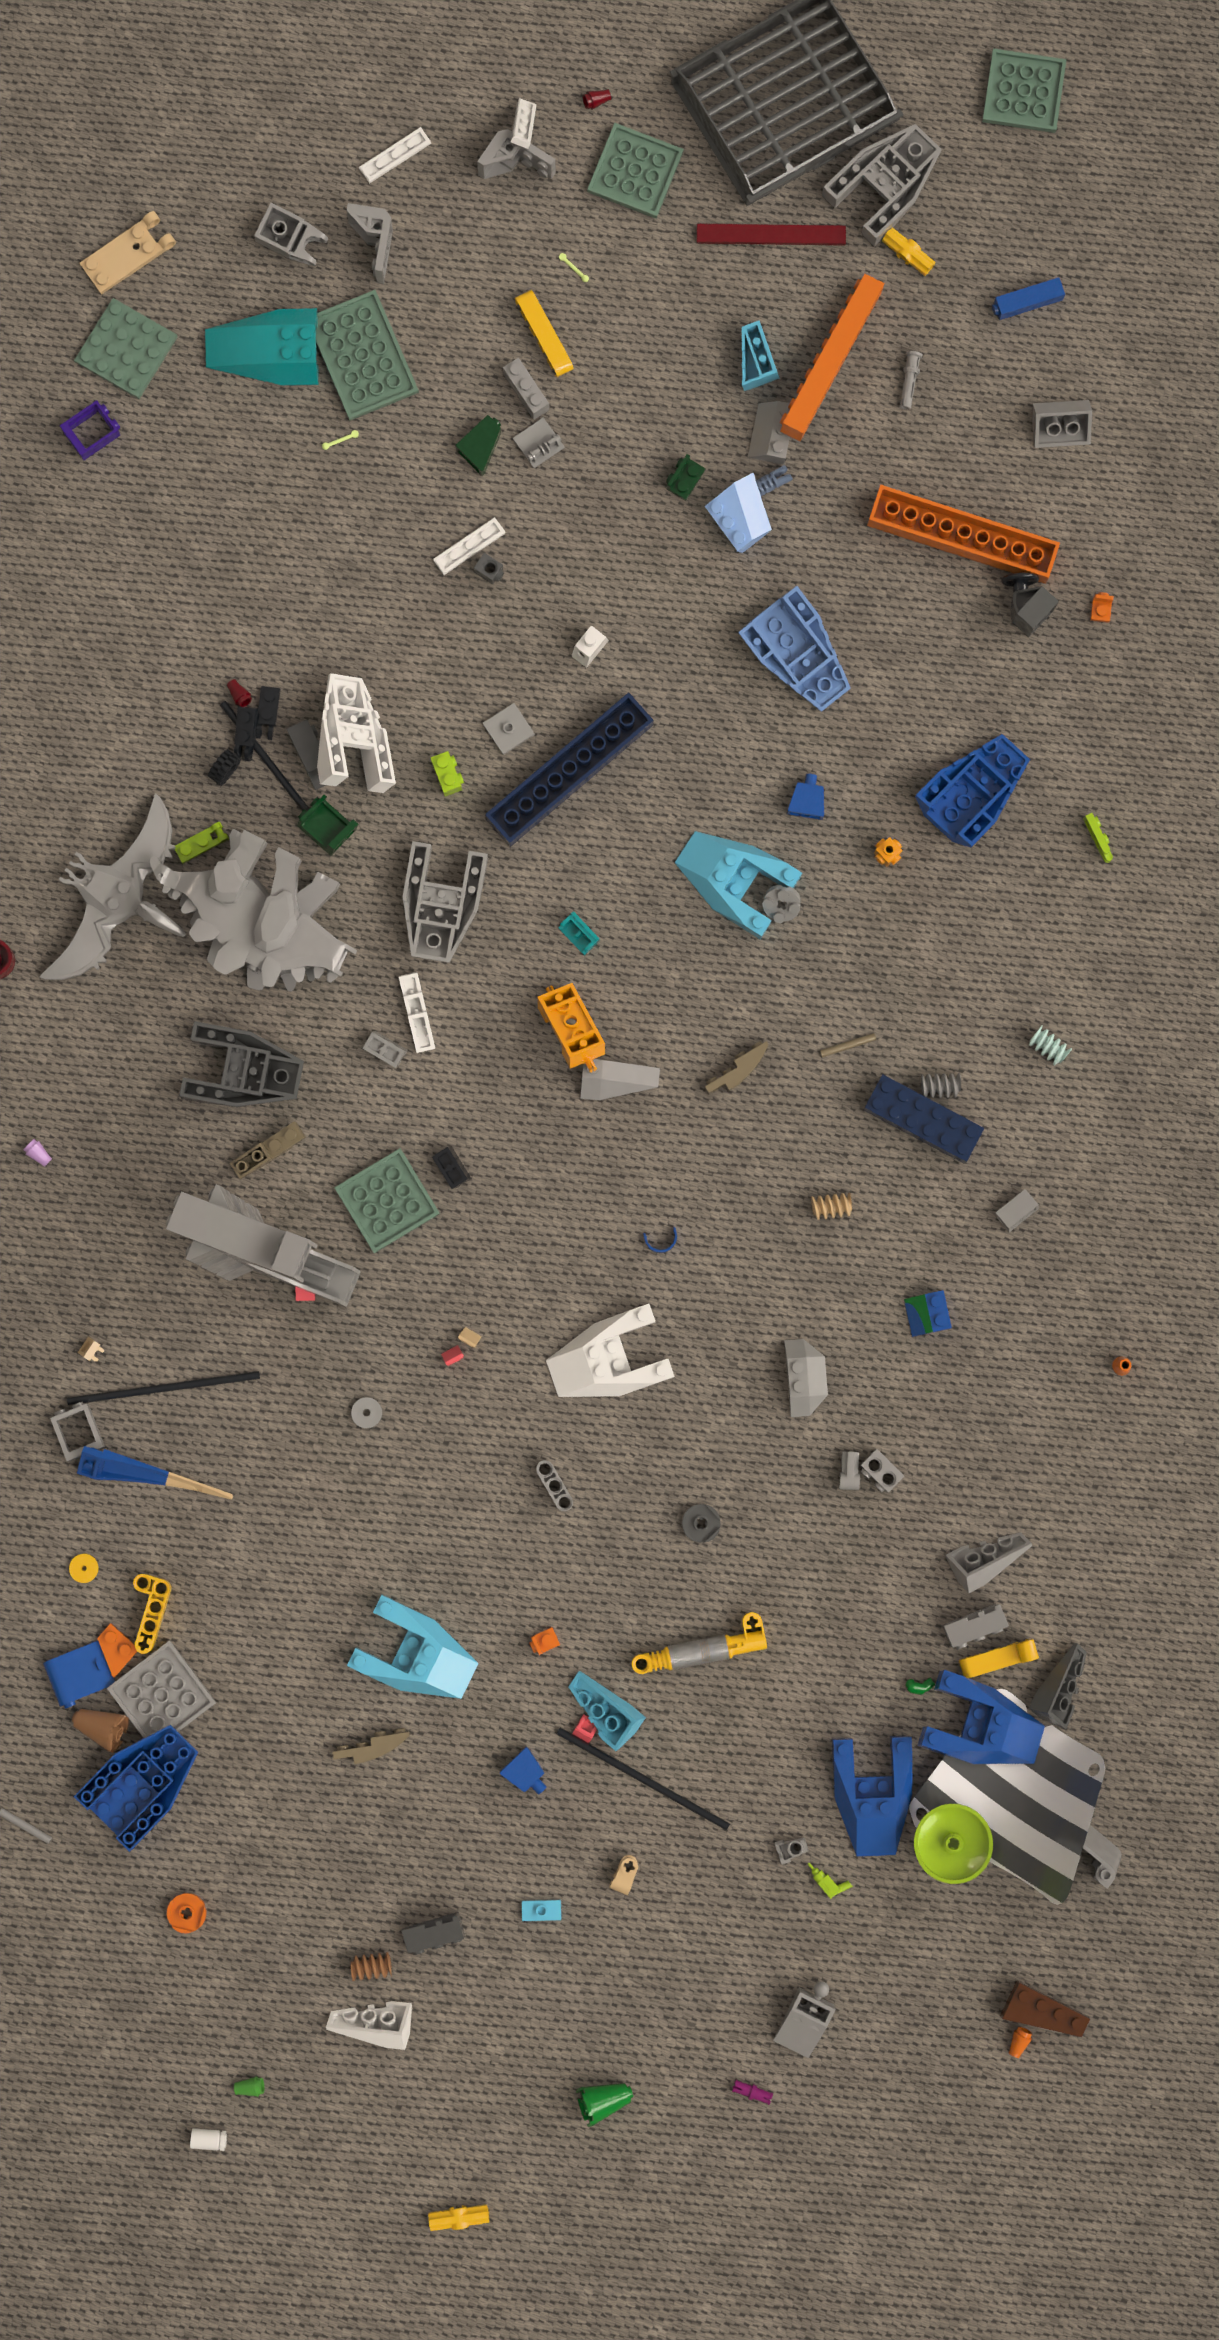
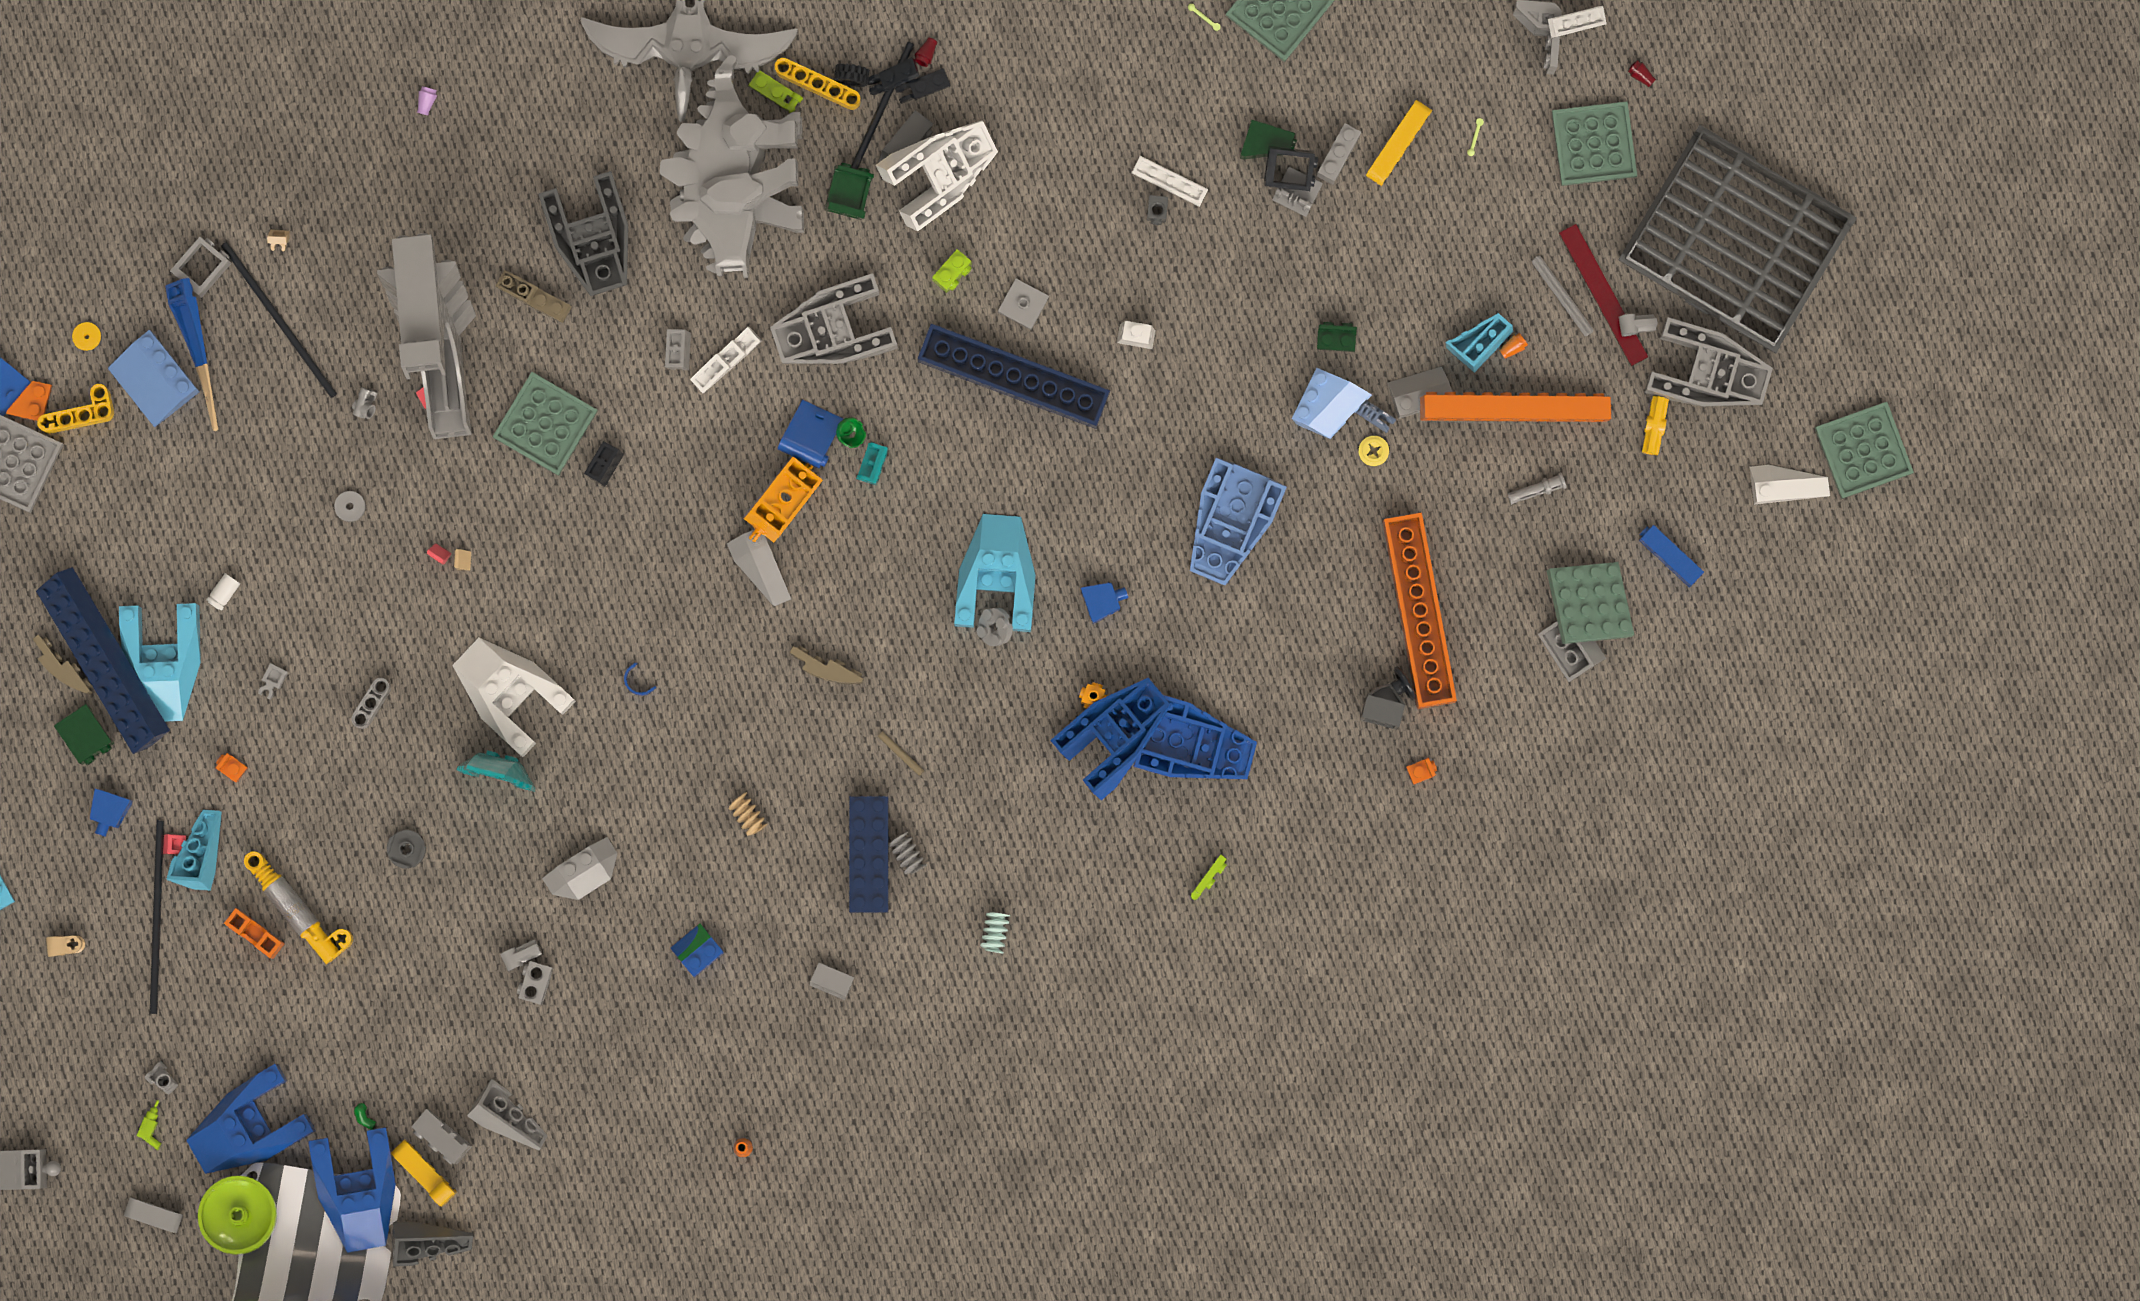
camera: 65 degrees right, 0 degrees up
(155, 1528) = (152, 378): none -> medium blue slope
(220, 793) = (824, 90): none -> yellow beam
(283, 1352) = (363, 405): none -> light grey plate
(382, 1566) = (223, 592): none -> white piece
(387, 1705) = (102, 660): none -> dark blue brick
(445, 1758) = (84, 735): none -> dark green panel
(484, 1561) = (273, 677): none -> light grey plate
(506, 449) = (1271, 163): none -> black window
(524, 973) = (810, 434): none -> blue door
(534, 937) = (848, 426): none -> green hair
(676, 1403) = (496, 767): none -> teal wedge
(706, 1697) = (254, 933): none -> orange arch
(753, 268) = (1562, 295): none -> light grey axle
(774, 331) = (1513, 346): none -> orange cone
(794, 494) = (1364, 449): none -> light yellow gear
(813, 219) = (1632, 324): none -> light grey piece
(913, 1917) = (153, 1215): none -> light grey beam
(931, 834) = (1122, 725): none -> blue wedge
(1015, 176) = (1783, 484): none -> white wedge
(1034, 386) = (1590, 602): none -> sand green plate

